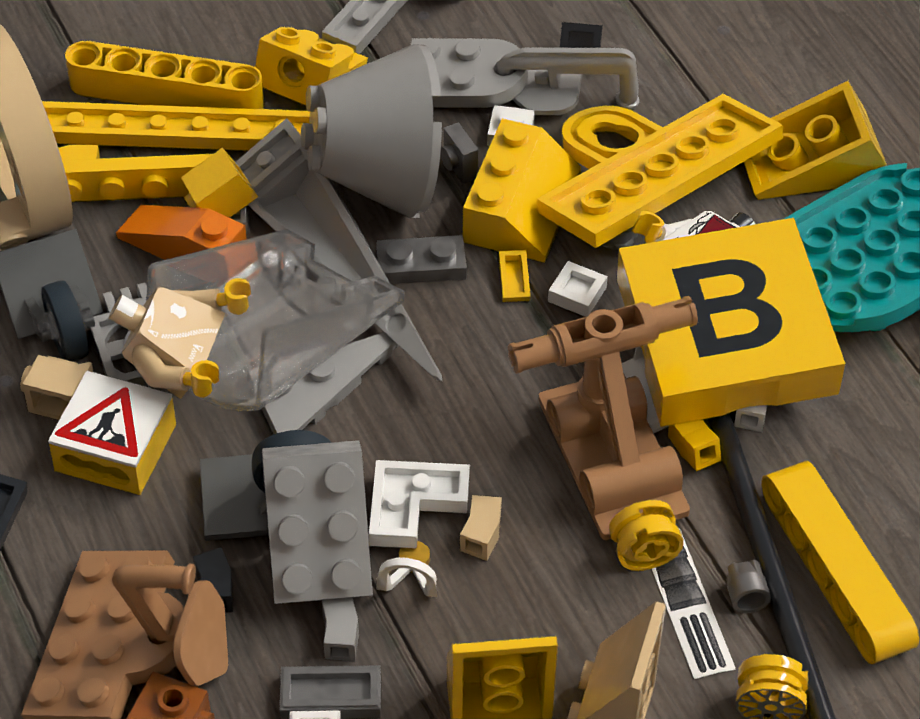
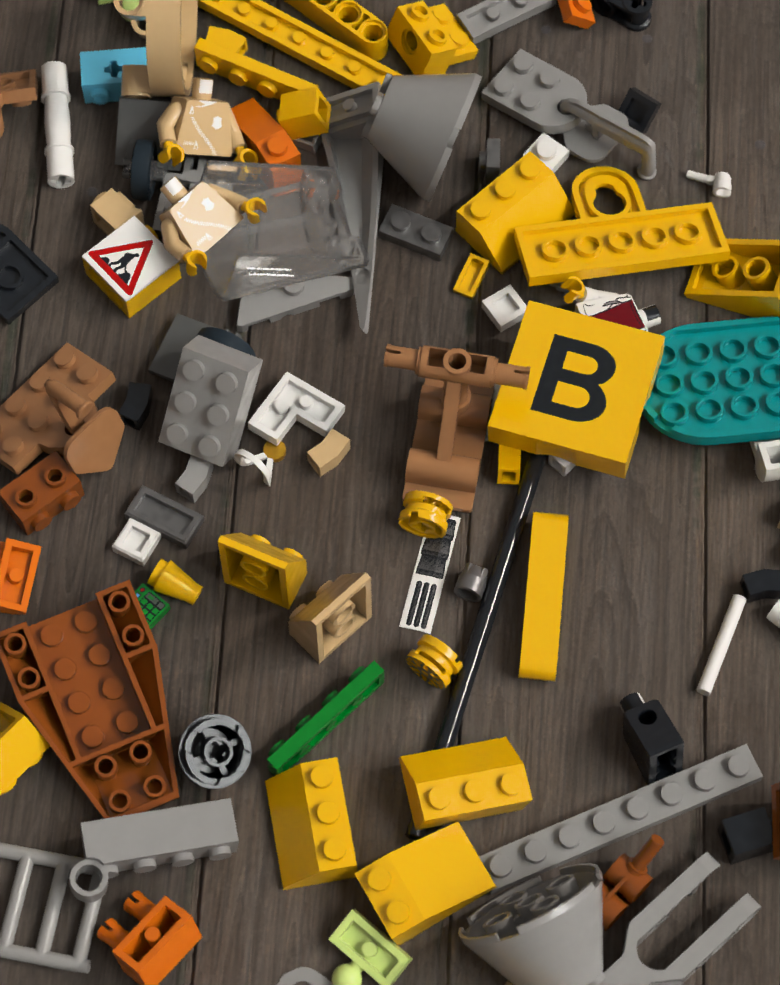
camera: 30 degrees right, 15 degrees up
(107, 243) = (200, 127): none -> tan torso
(714, 75) = (721, 182): none -> white hand

